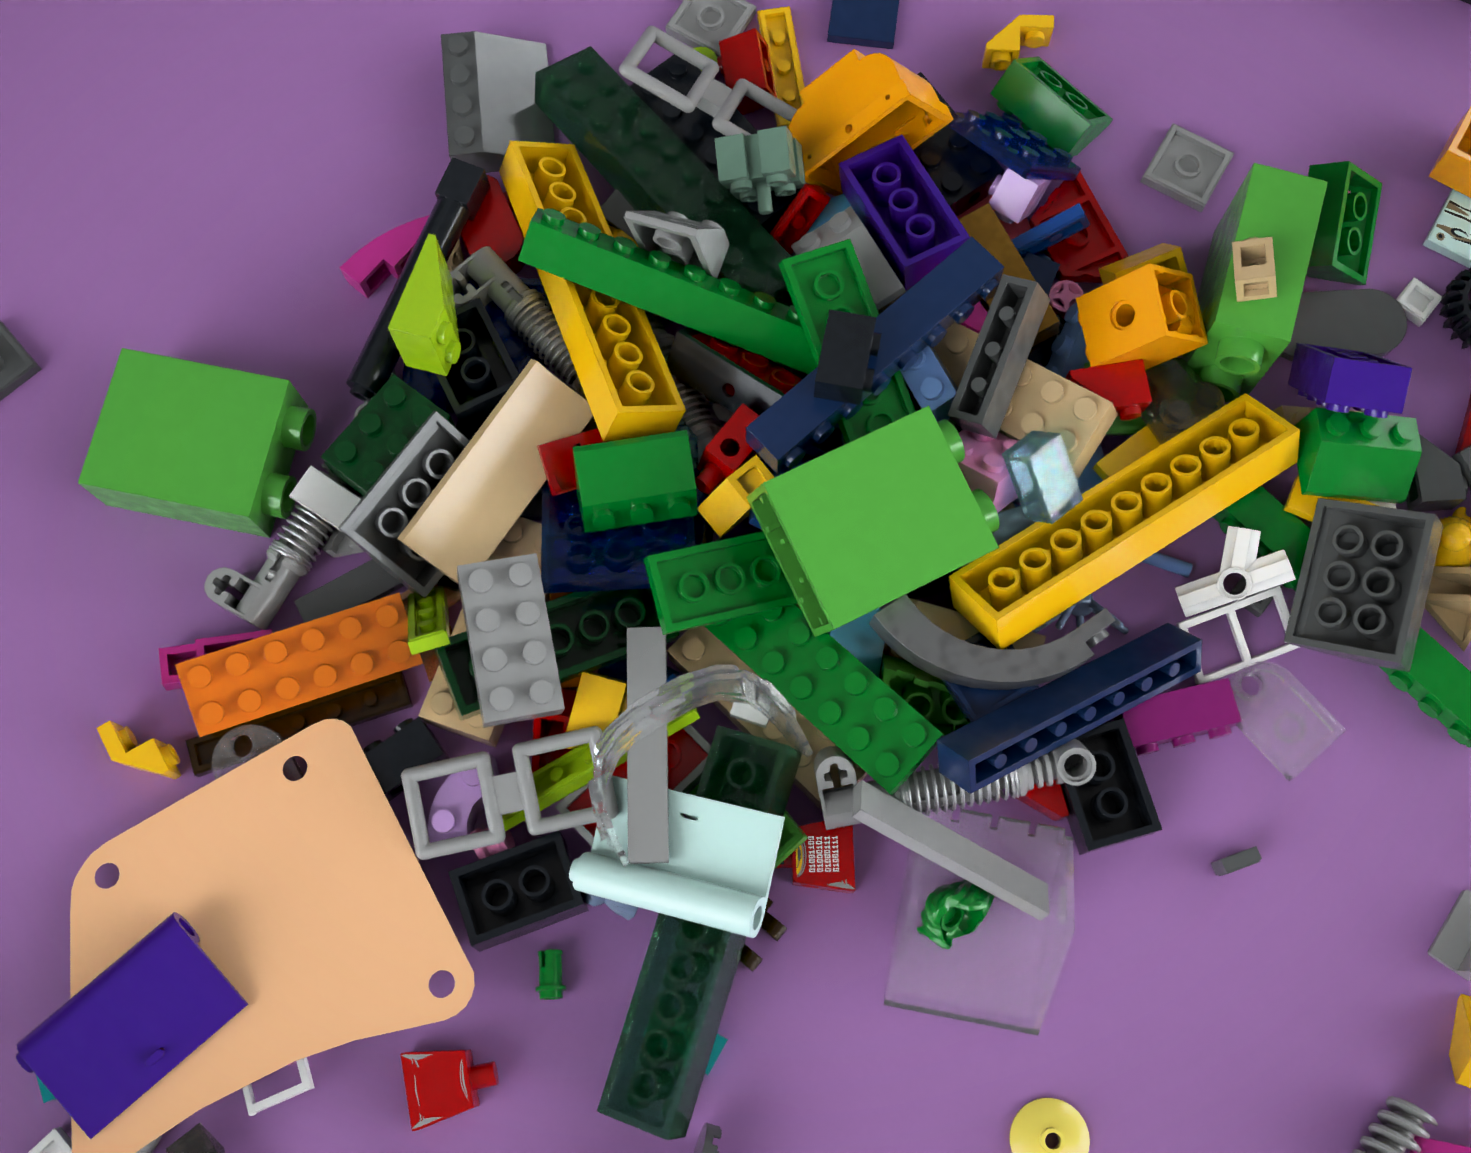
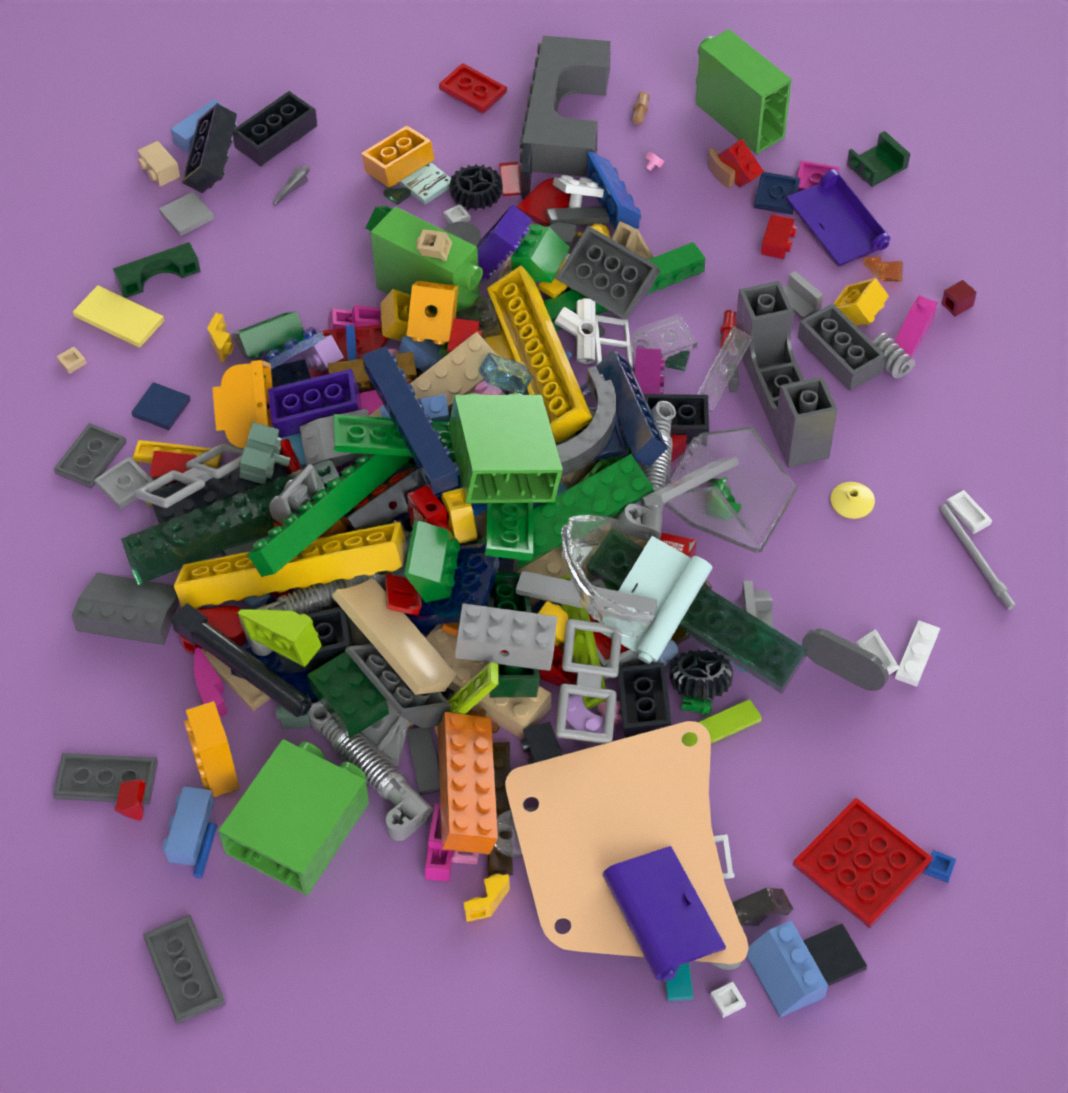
camera: 75 degrees left, 20 degrees down
(149, 346) = (205, 850): none -> blue piece
(164, 313) = (188, 825): none -> medium blue brick
(183, 223) = (130, 799): none -> red tile
(222, 183) = (99, 776): none -> dark grey tile
(246, 291) = (211, 749): none -> light orange brick
(324, 497) = (369, 742): white tile -> none
(443, 1084) = (744, 772): red torso -> none
(523, 1018) = (726, 723): none -> lime tile
(589, 954) = (701, 674): none -> black gear
(766, 1027) = (757, 602): none -> light grey panel
(845, 357) = (412, 421): black brick -> none
(999, 356) = (429, 368): dark grey brick -> none
(1126, 216) = (357, 317): none -> dark pink slope
(1187, 167) = (333, 287): light grey tile -> none
(1230, 841) = (724, 366): none -> clear tile
(1244, 757) = (678, 361): none -> clear green tile
(1322, 901) = (796, 408): none -> dark grey arch
(1342, 825) = (728, 323): none -> red pin
(1376, 1042) = (841, 346): none -> dark grey brick
(1385, 34) = (296, 179): none -> flat silver piece
(1424, 195) = (397, 195): none -> clear green tile

